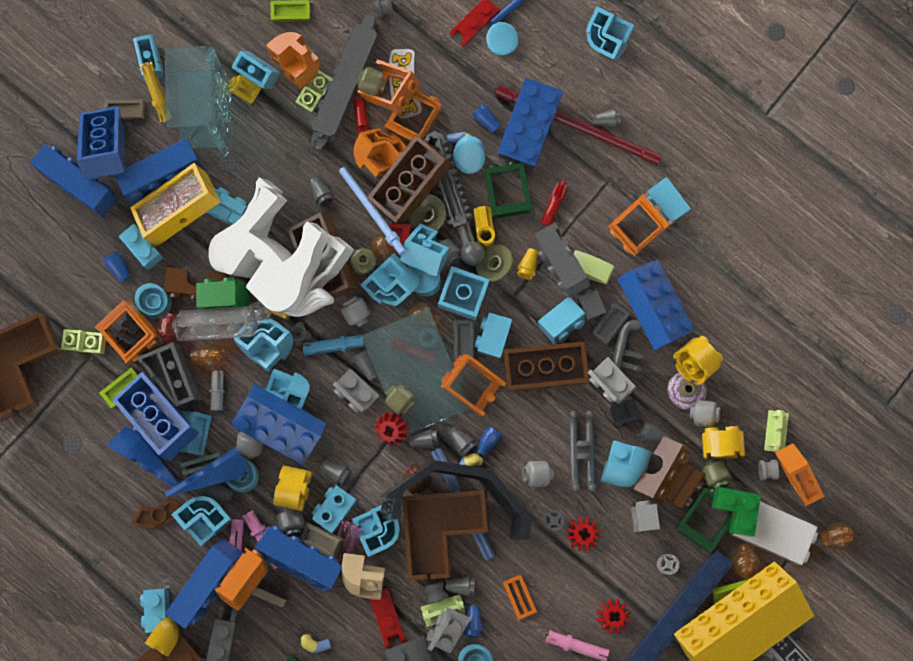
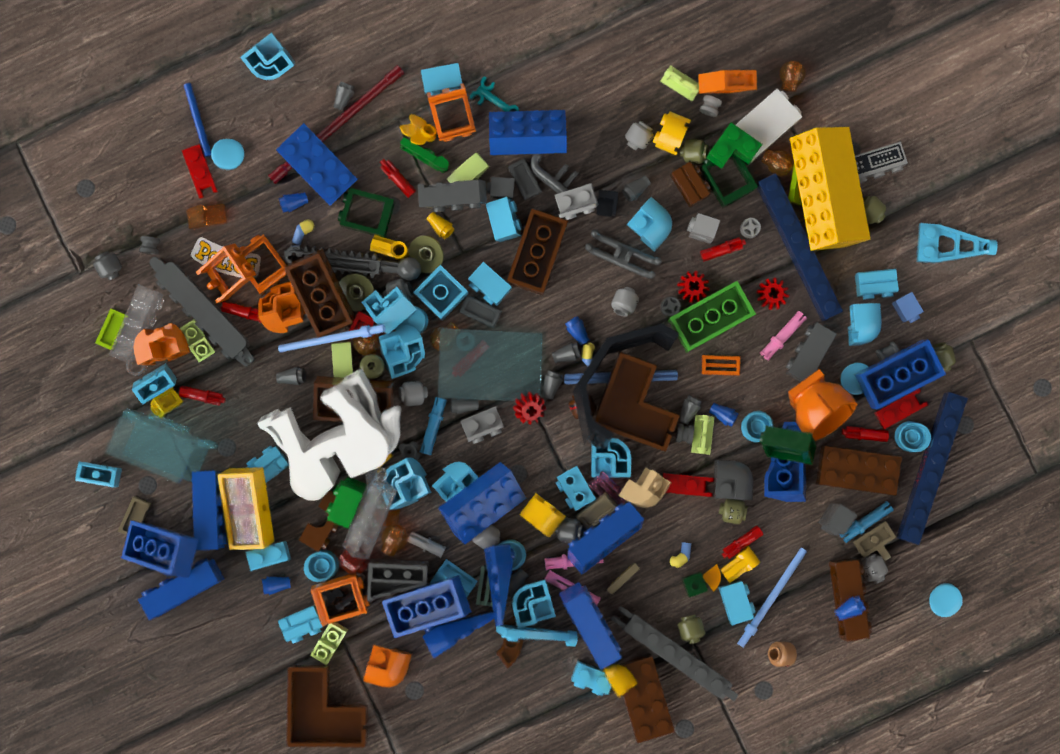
camera: 65 degrees left, 5 degrees up
(83, 406) = (387, 666): none -> orange brick
(88, 305) = (300, 623): none -> medium azure brick
(117, 386) = (383, 628): lime tile -> none
(155, 90) = (141, 482): yellow pin -> none
(164, 511) = (512, 633): none -> medium azure plate
(242, 579) = (602, 590): orange window -> none
(265, 118) = (201, 395): none -> red piece
(313, 28) = (138, 317): none -> clear hinge
(337, 472) = (545, 472): dark grey cone -> none
(358, 230) = (342, 359): none -> yellowish green slope
(371, 81) = (214, 286): olive head -> none
(400, 399) = (508, 389): olive head -> none
(435, 47) = (206, 216): none -> clear orange slope
(447, 630) = (721, 438): light grey bracket -> none
(469, 154) = (319, 231): medium azure piece -> none
(486, 397) = (538, 314): orange window -> none
(562, 565) = (711, 316): none -> bright green brick
(588, 220) = (425, 155): none -> green hinge
(608, 203) = (419, 130): none -> yellow plate
(634, 546) = (722, 249): none -> red piece
(657, 486) = (682, 205): arch -> none
(675, 247) = (483, 91): none -> teal bar
(680, 397) = (608, 150): dish -> none
(697, 360) = (591, 120): yellow brick -> none

